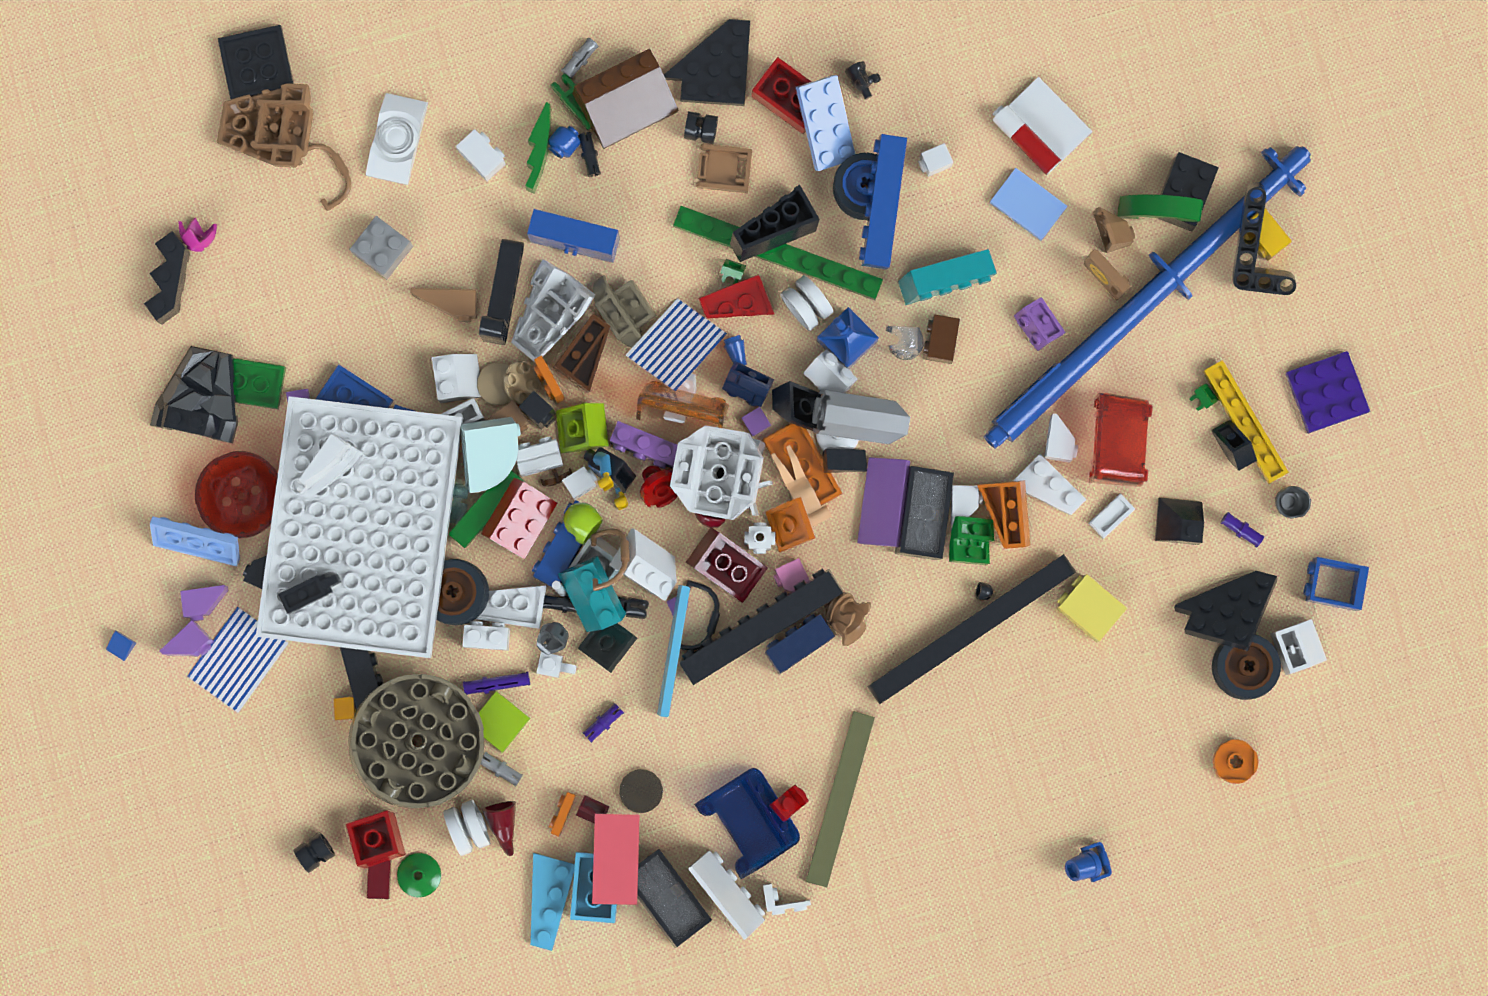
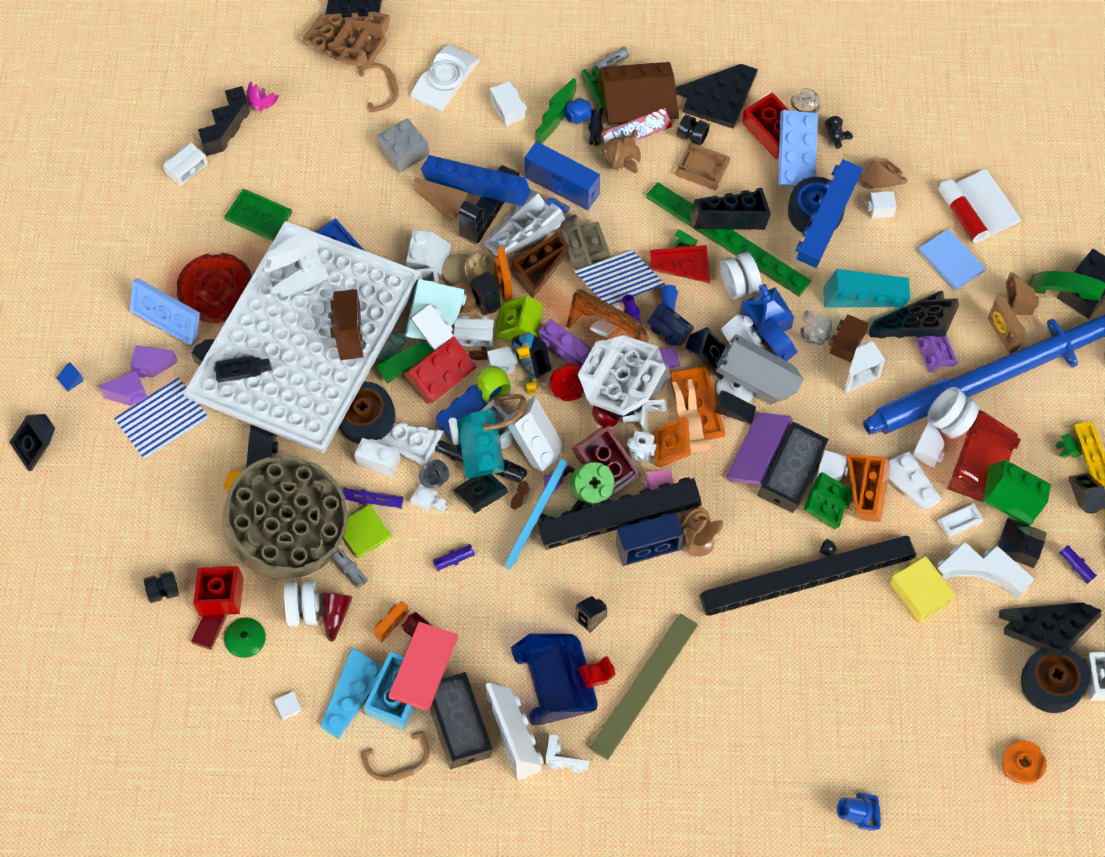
camera: 20 degrees right, 20 degrees down
(113, 731) = (32, 439): none -> black slope
(144, 346) = (185, 164): none -> white brick
(200, 396) = (214, 211): wedge -> none
(404, 507) = (346, 324): none -> reddish brown wedge
(480, 274) = (476, 180): none -> blue brick
(489, 933) = (288, 705): none -> white tile
(495, 477) = (431, 326): none -> white brick
(579, 270) = (561, 205): none -> blue tile
(631, 181) = (621, 152): none -> medium nougat helmet
(633, 963) = (402, 773): none -> medium nougat piece
(637, 143) = (645, 126): none -> sticker
(641, 791) = (469, 624): clear smoke tile -> none
(650, 626) = (517, 500): none -> reddish brown piece
(702, 384) = (630, 306): none -> dark purple pin
(722, 601) = (592, 493): none -> brick
(764, 740) = (590, 613): none -> black slope
(817, 54) = (805, 101): none -> clear helmet
(868, 372) = (777, 340): none -> blue brick
(930, 121) = (883, 174): none -> medium nougat slope
(967, 372) = (865, 366): none -> white slope
(1012, 296) = (922, 318): none -> black wing
(1076, 406) = (953, 412): none -> white wheel
(1157, 560) = (992, 566): none -> white arch
(1161, 474) = (1016, 491): none -> green slope

